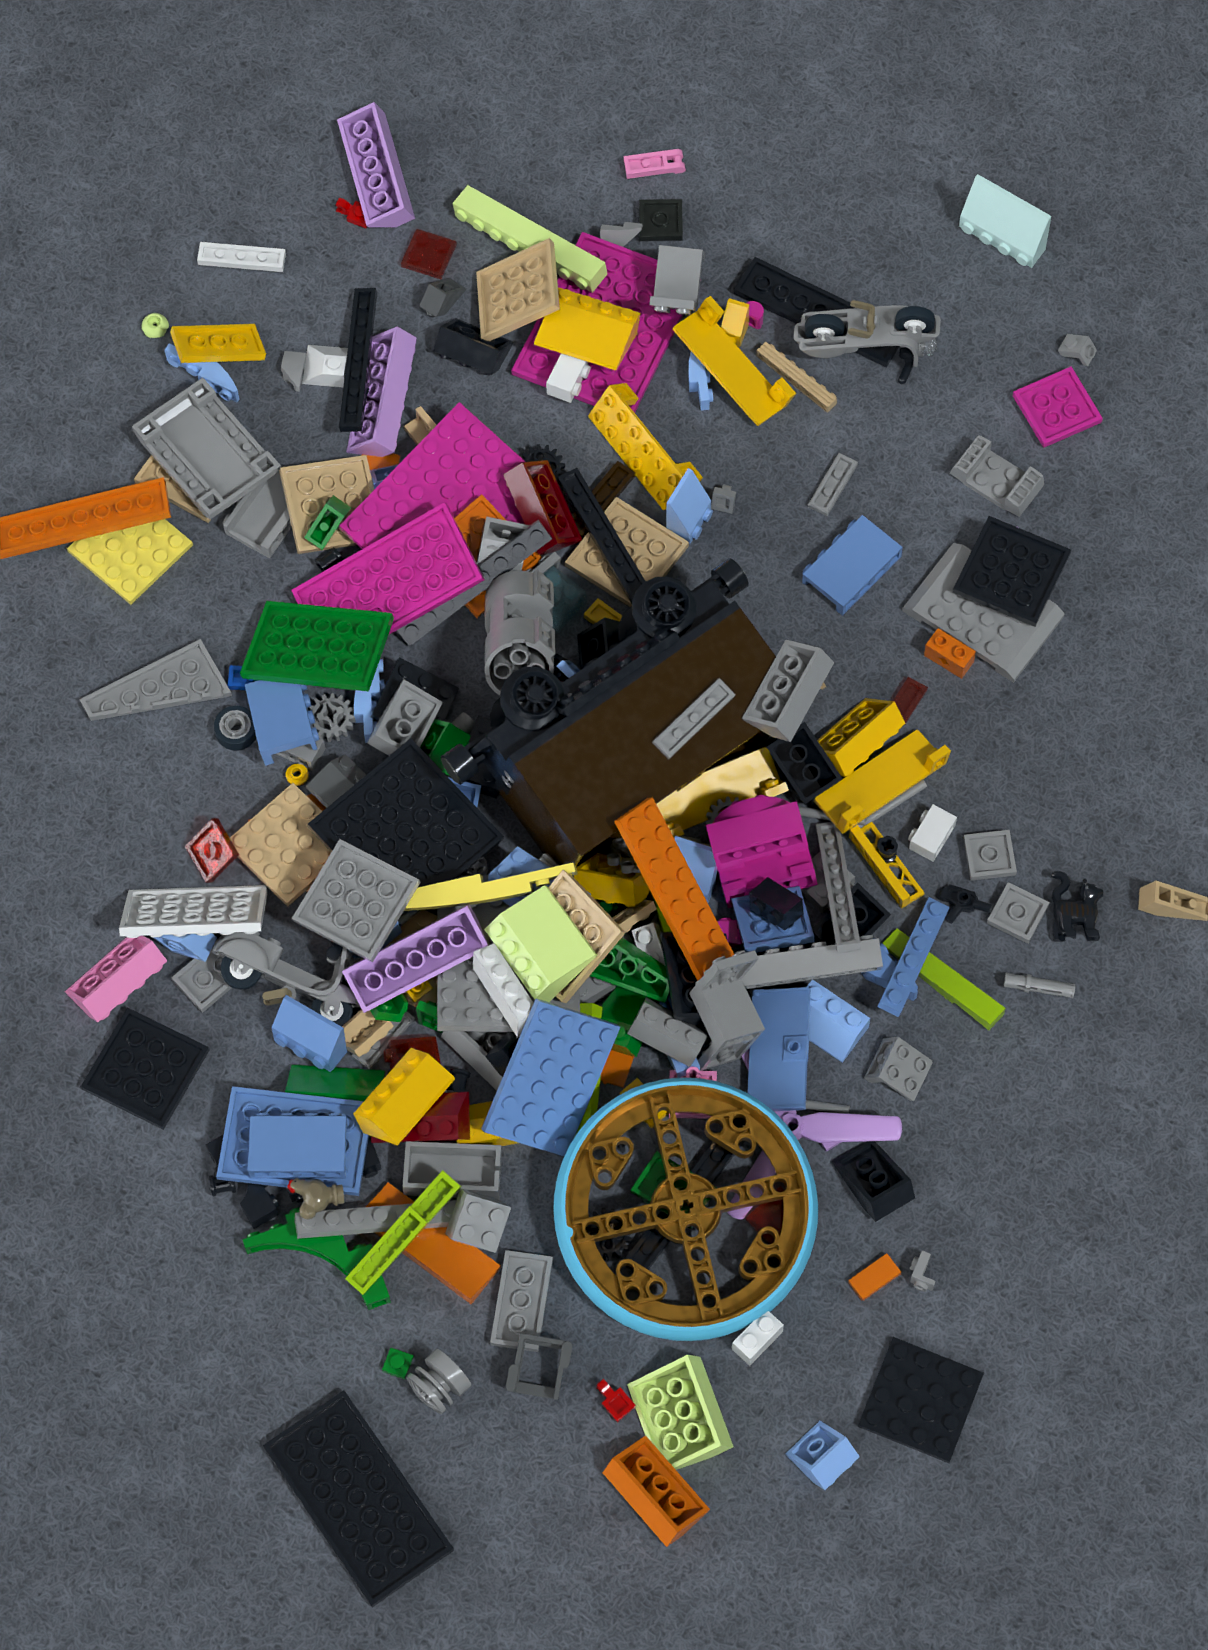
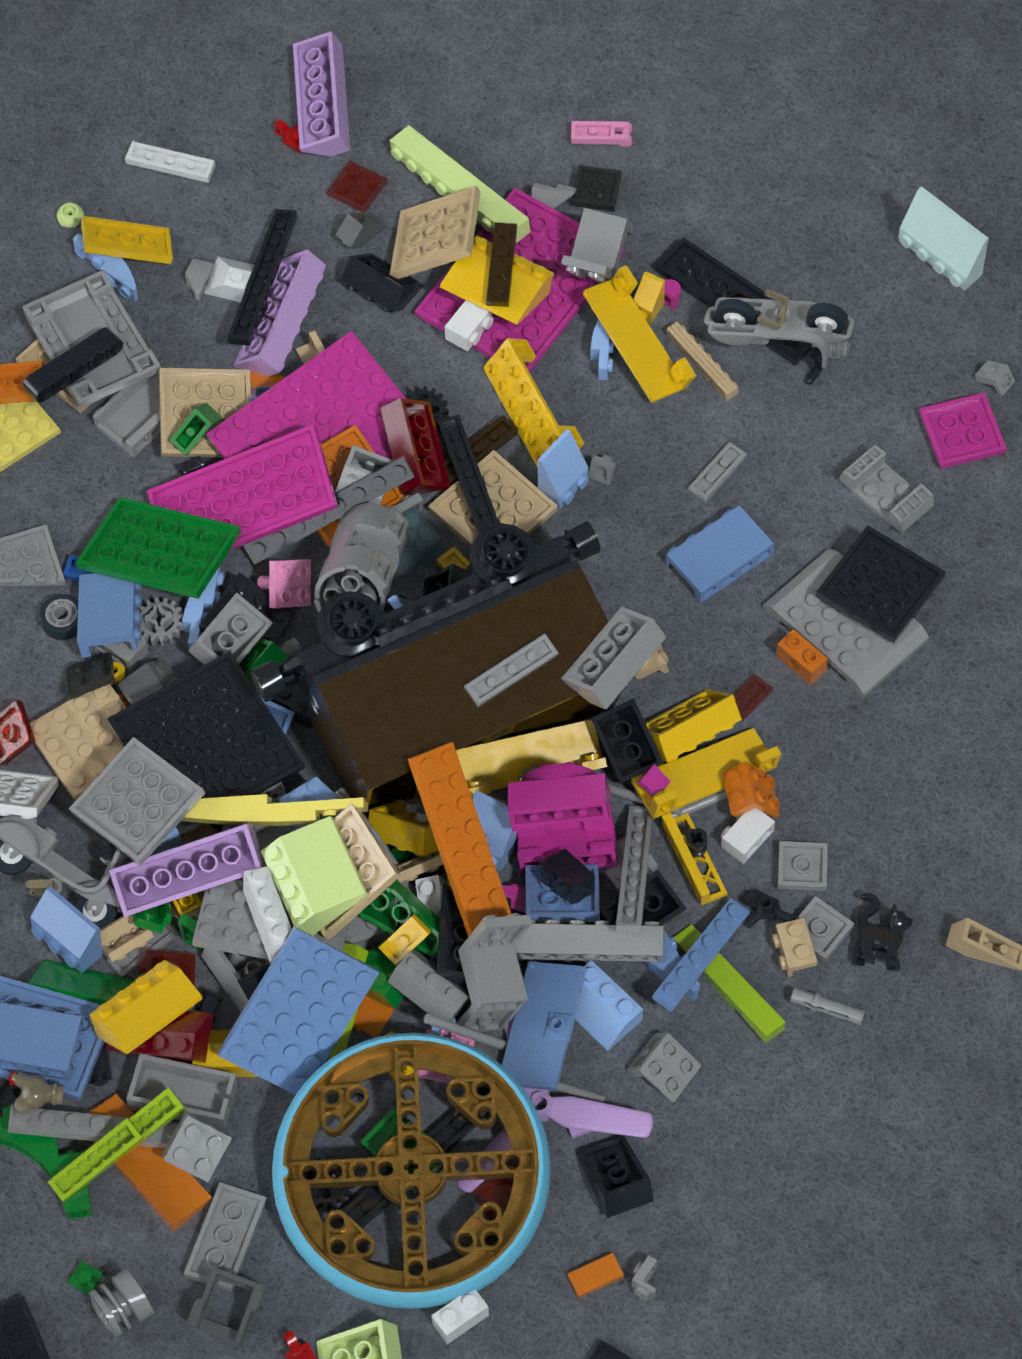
camera: 10 degrees right, 5 degrees down
(195, 477) = (72, 365): none -> black beam
(276, 781) = (90, 675): none -> pearl dark grey plate
(448, 660) = (288, 583): none -> bright pink plate
(590, 313) = (501, 264): none -> dark brown plate
(636, 990) = (404, 939): none -> yellow plate
(709, 1068) = (465, 1032): none -> light grey bar
(837, 797) = (653, 781): none -> dark pink tile
(927, 790) = (750, 789): none -> orange bracket
(997, 933) = (794, 945): none -> tan bracket

